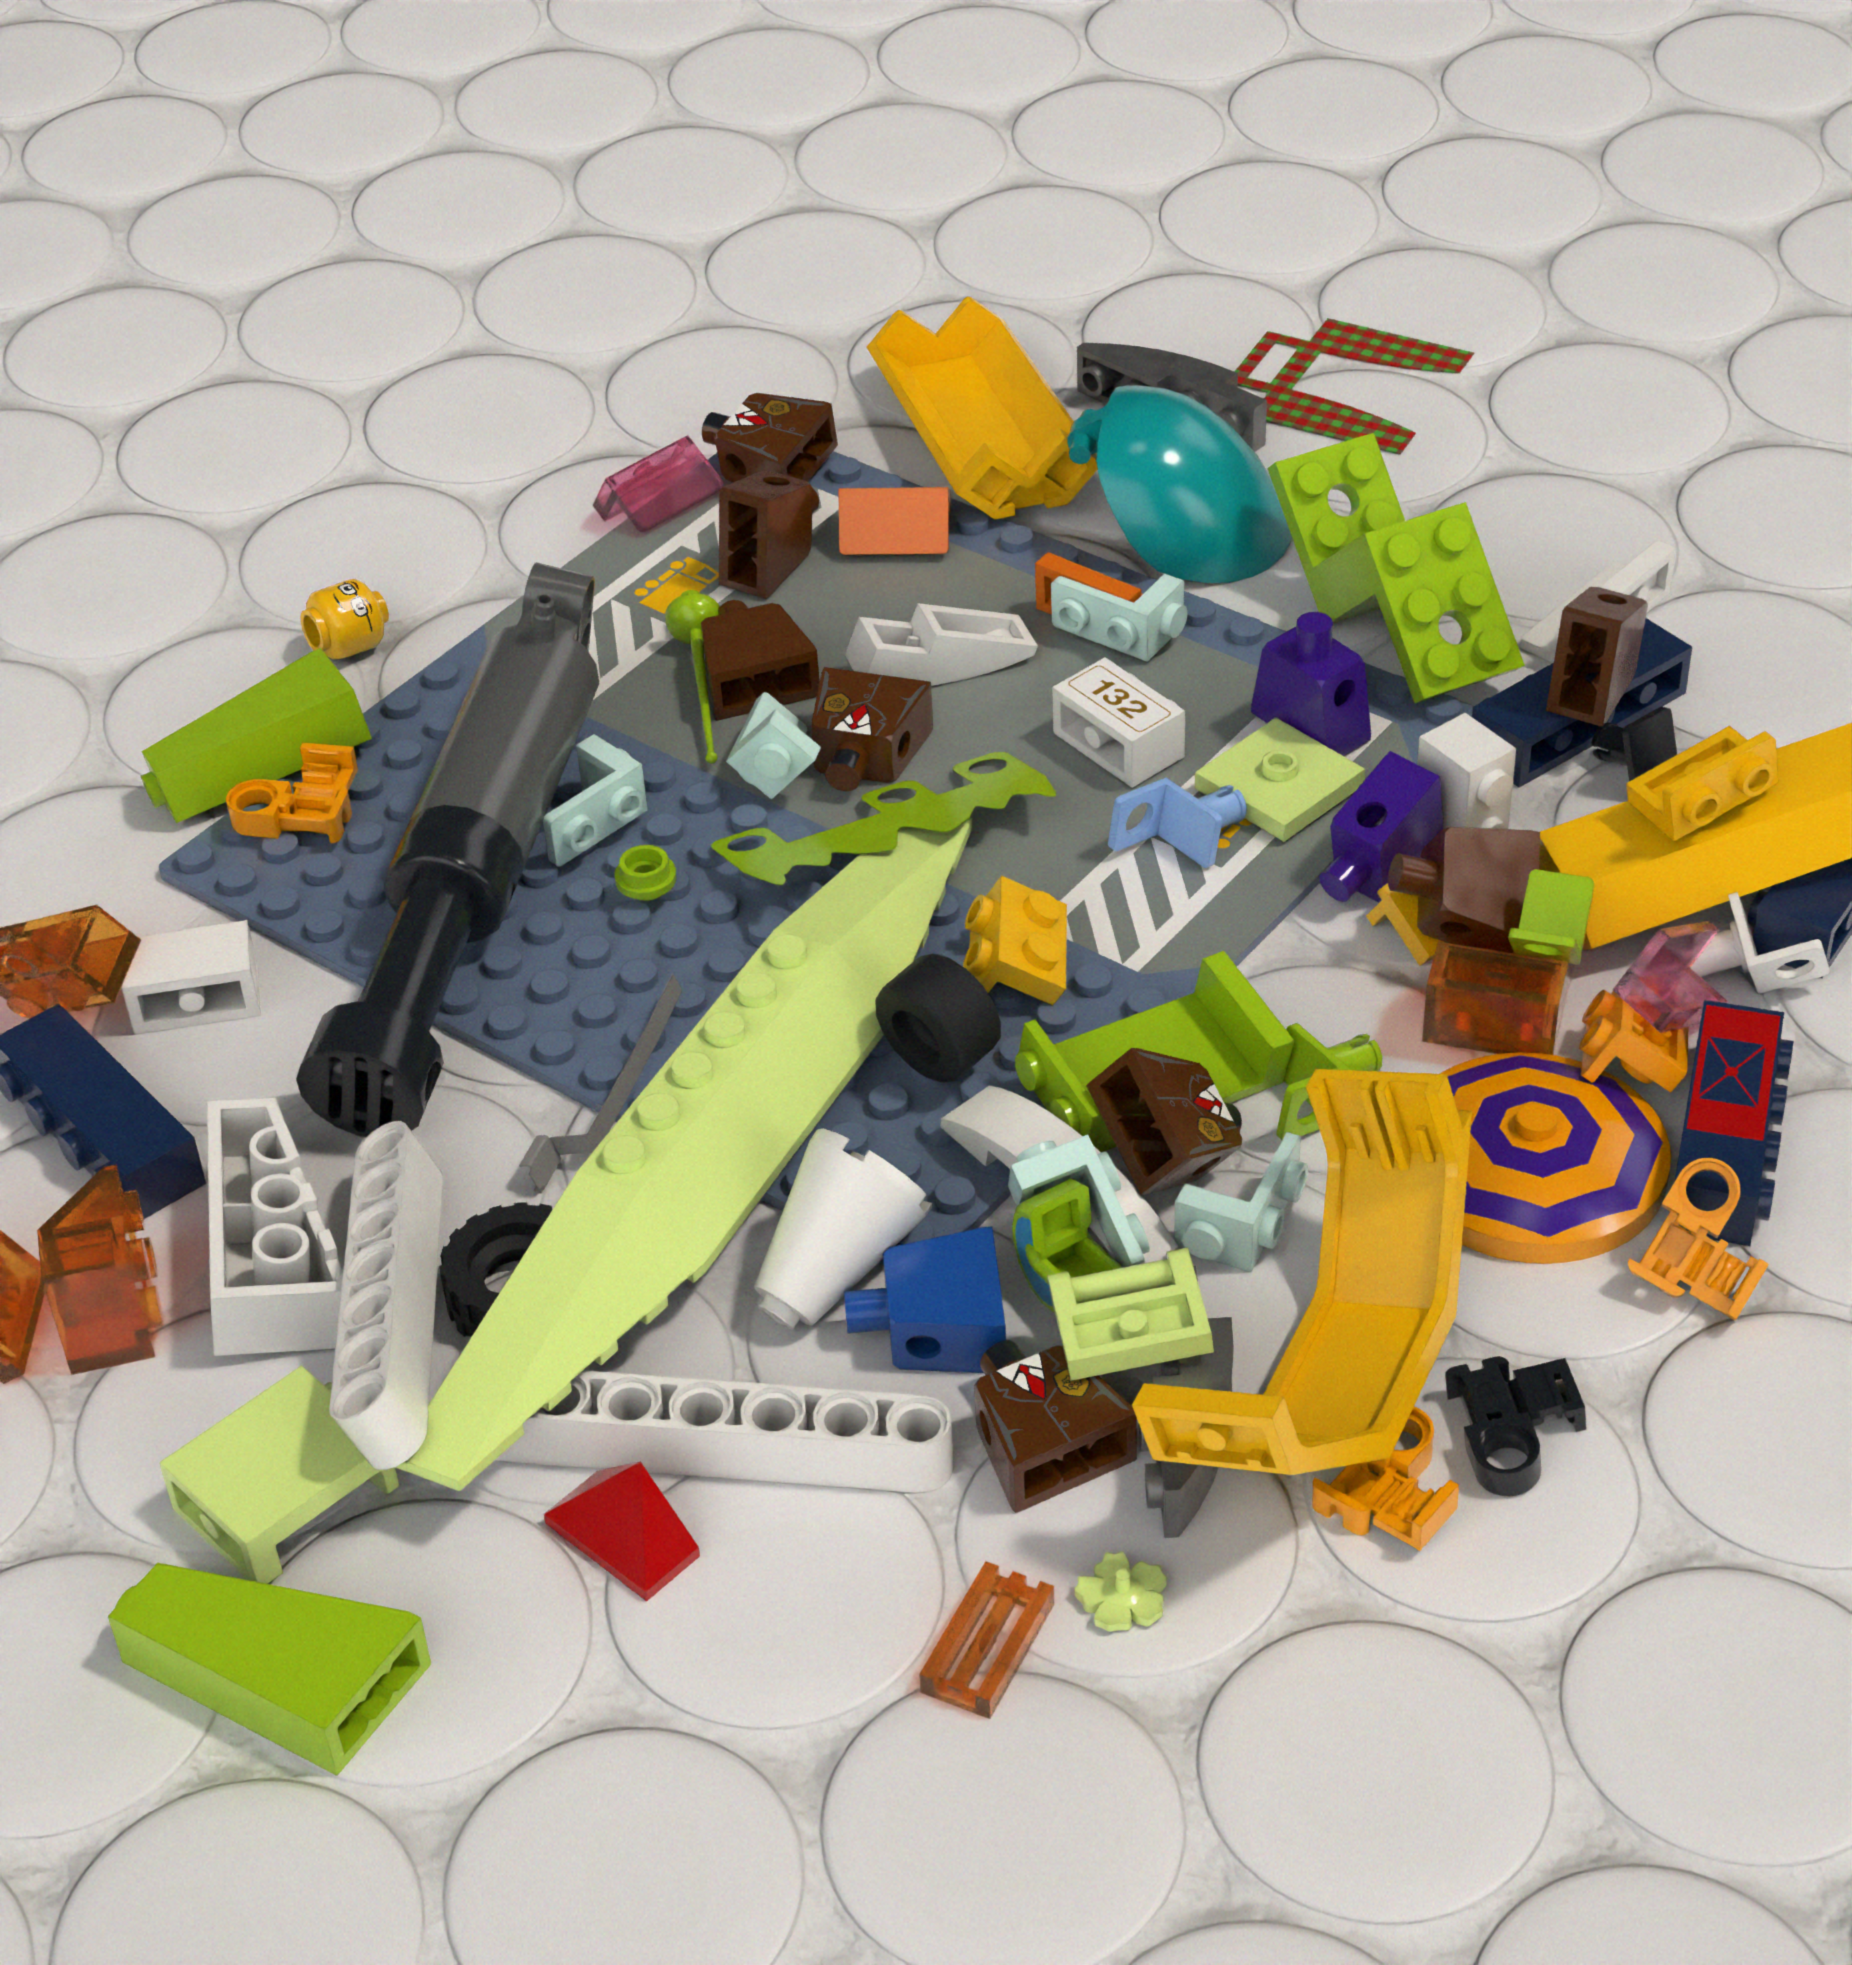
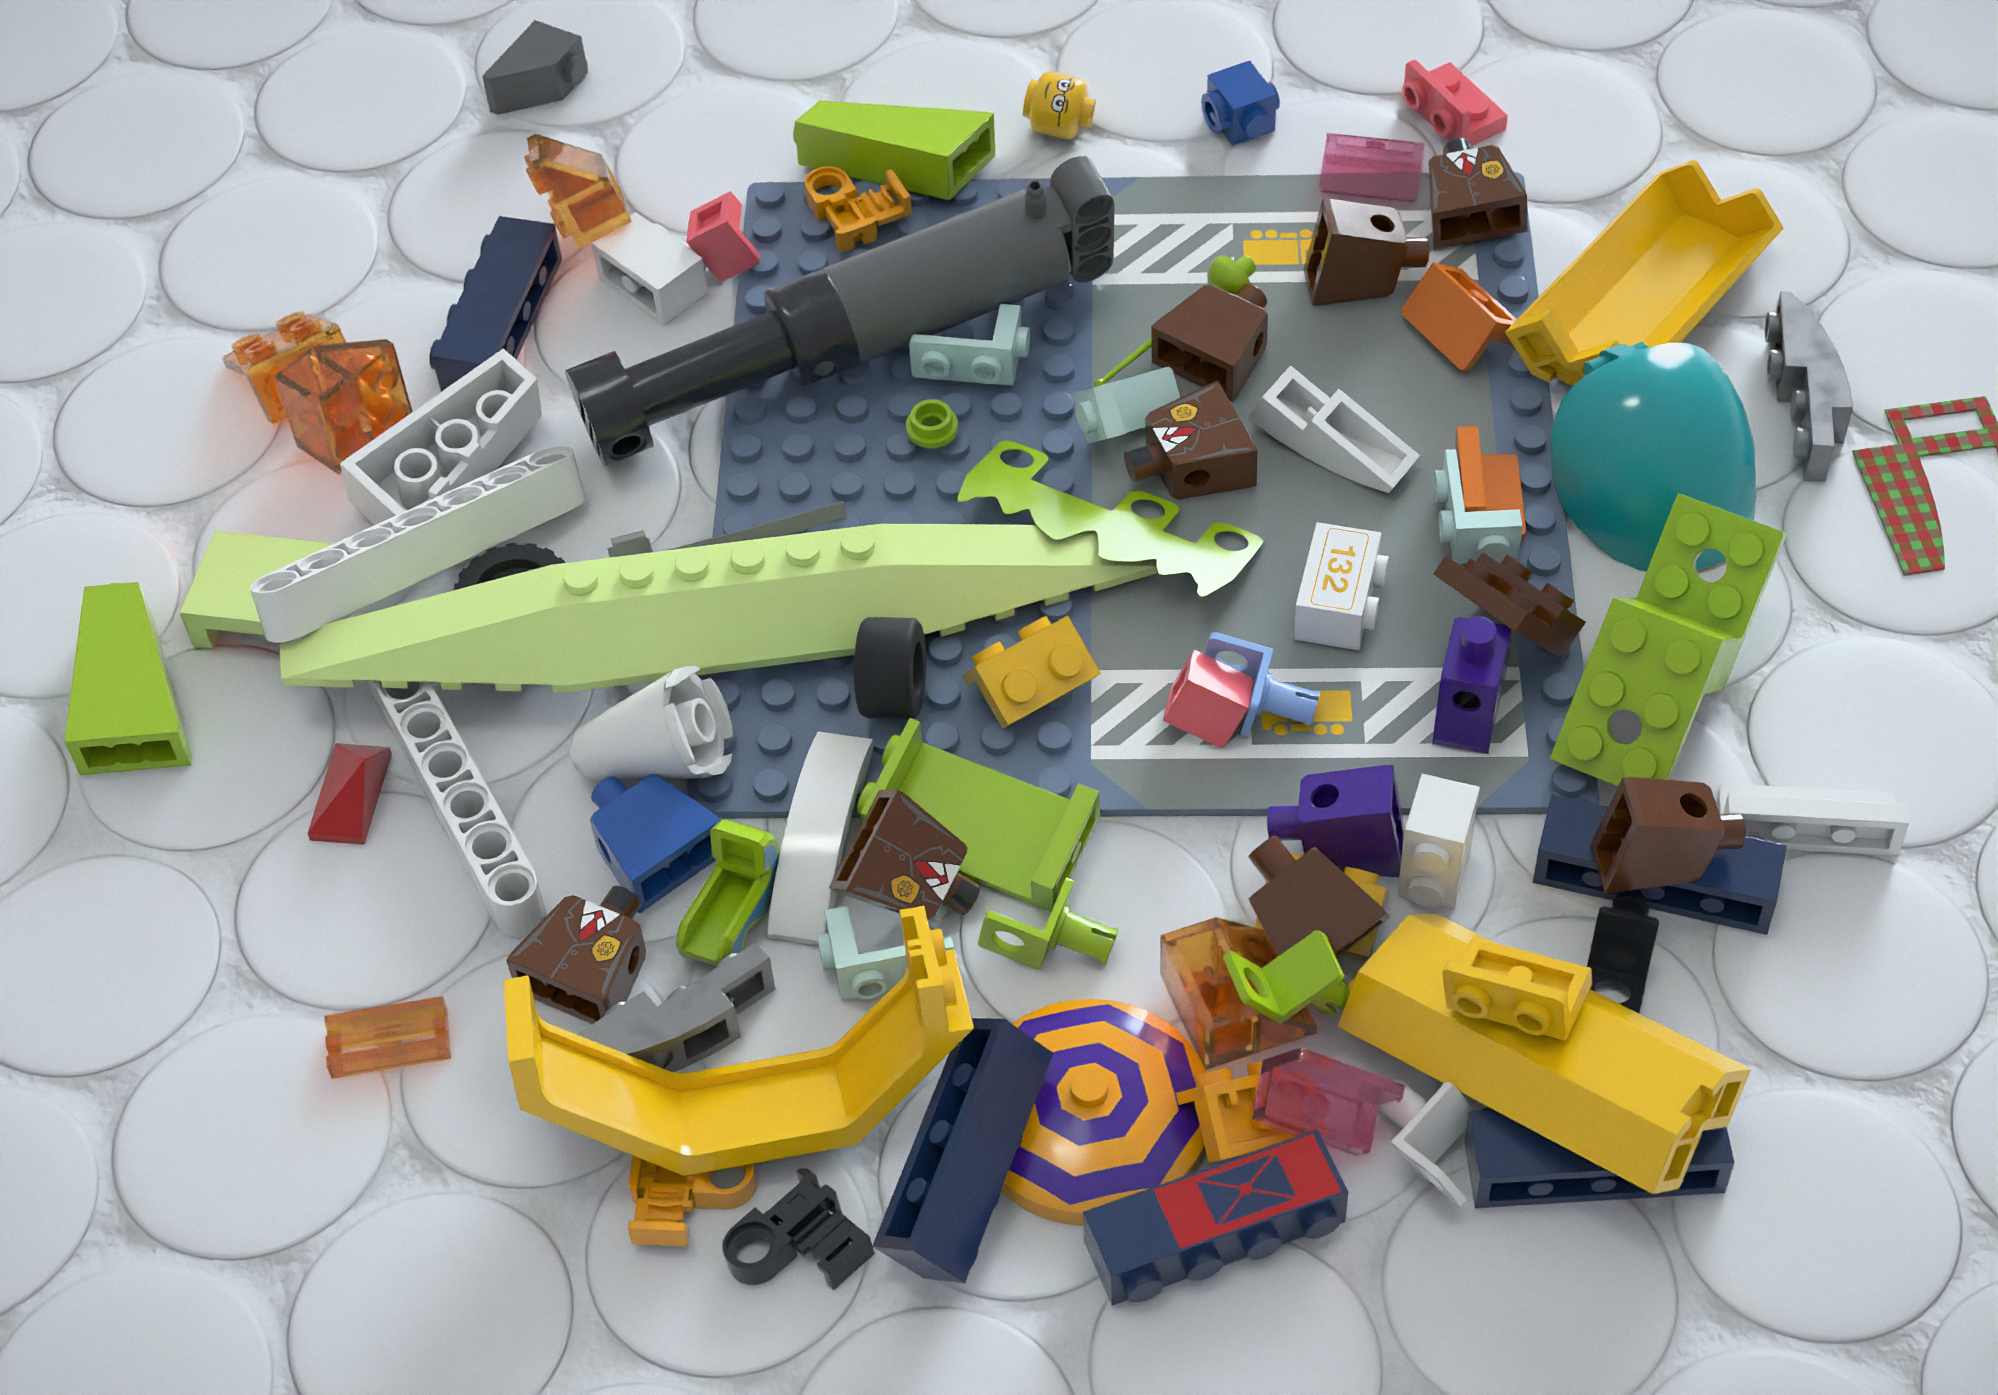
camera: 55 degrees right, 10 degrees up
(230, 891) = (717, 237): none -> coral panel
(485, 520) = (1240, 103): none -> blue brick
(635, 418) = (1452, 103): none -> coral bracket
(1049, 1165) = (784, 858): light aqua bracket -> none
(1122, 1594) = (480, 1090): yellowish green plant -> none
(1130, 1316) = (669, 956): yellowish green plate -> none
(1164, 854) = (1208, 699): none -> coral panel
(1240, 628) = (1509, 597): none -> reddish brown plate
(1282, 777) = (1375, 720): yellowish green plate -> none
(1557, 1236) = (963, 1151): none -> dark blue brick
(1692, 1255) = (1038, 1255): light orange piece -> none

